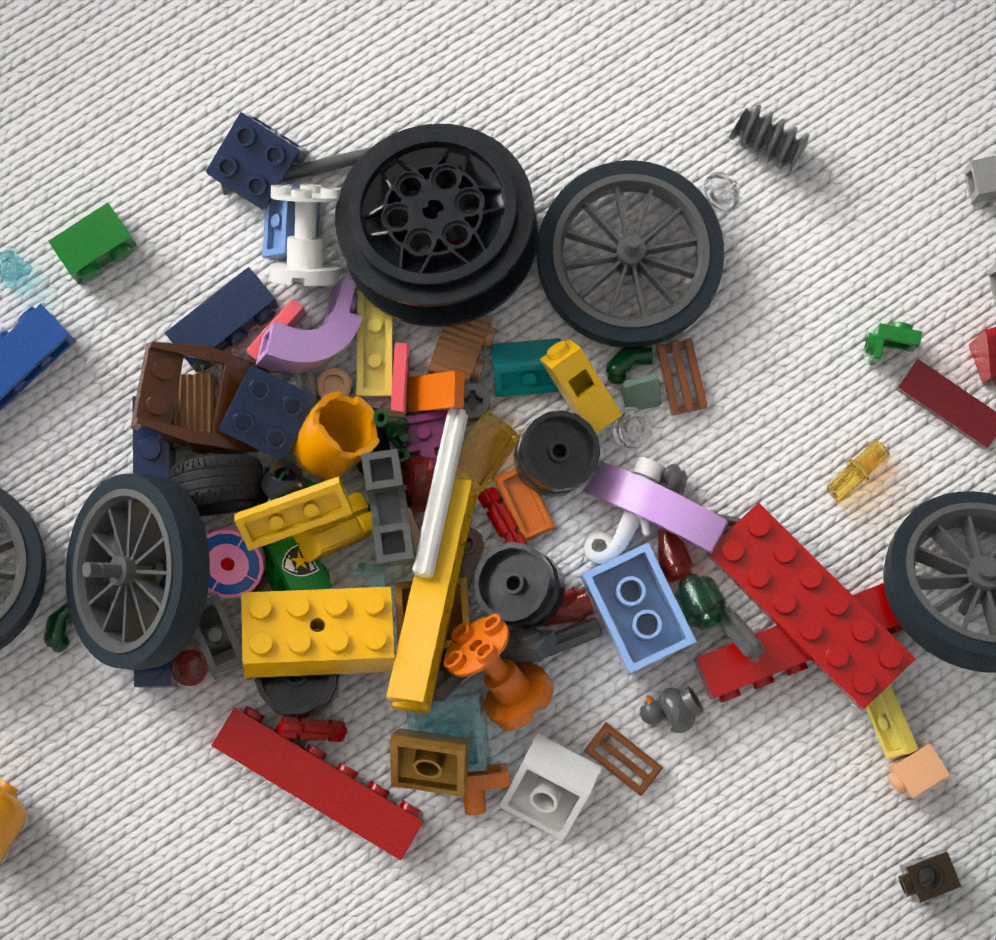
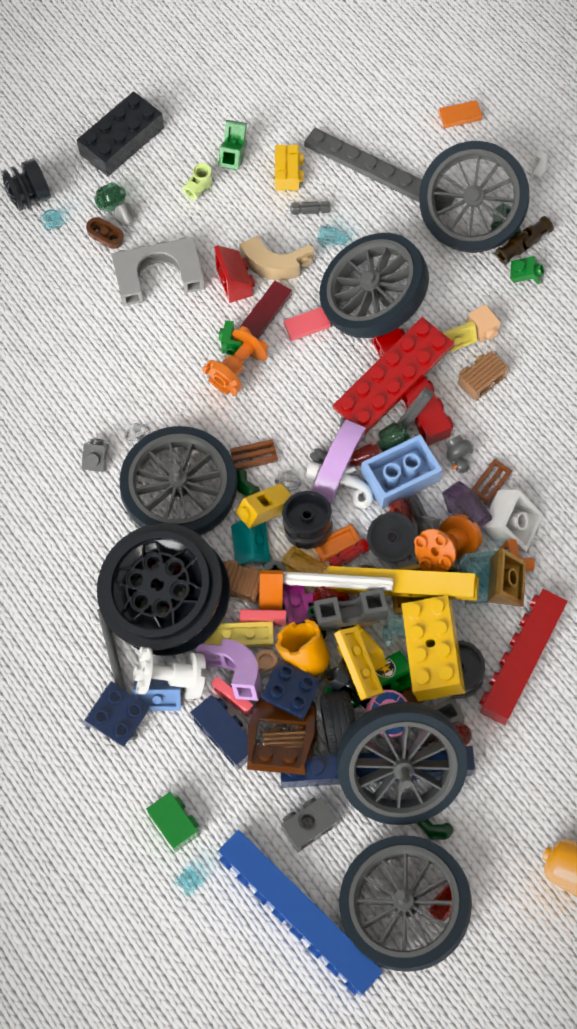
camera: 90 degrees left, 15 degrees down
(61, 424) = (299, 835): none -> dark grey brick
(312, 729) = (491, 659): red axle -> none
(395, 425) = (295, 615): dark green arm -> none
(571, 711) = (463, 500): none -> clear purple slope
(642, 392) = (264, 476): sand green slope -> none
(686, 126) = (94, 455): none -> bracket
(770, 137) = (102, 403): dark grey piece -> none
(817, 760) = (483, 375): none -> medium nougat brick
(832, 339) = (225, 374): none -> orange piece
(857, 470) = (308, 357): clear yellow axle -> none
(922, 468) = (306, 324): none -> coral tile
(944, 876) = (546, 310): dark brown brick -> none

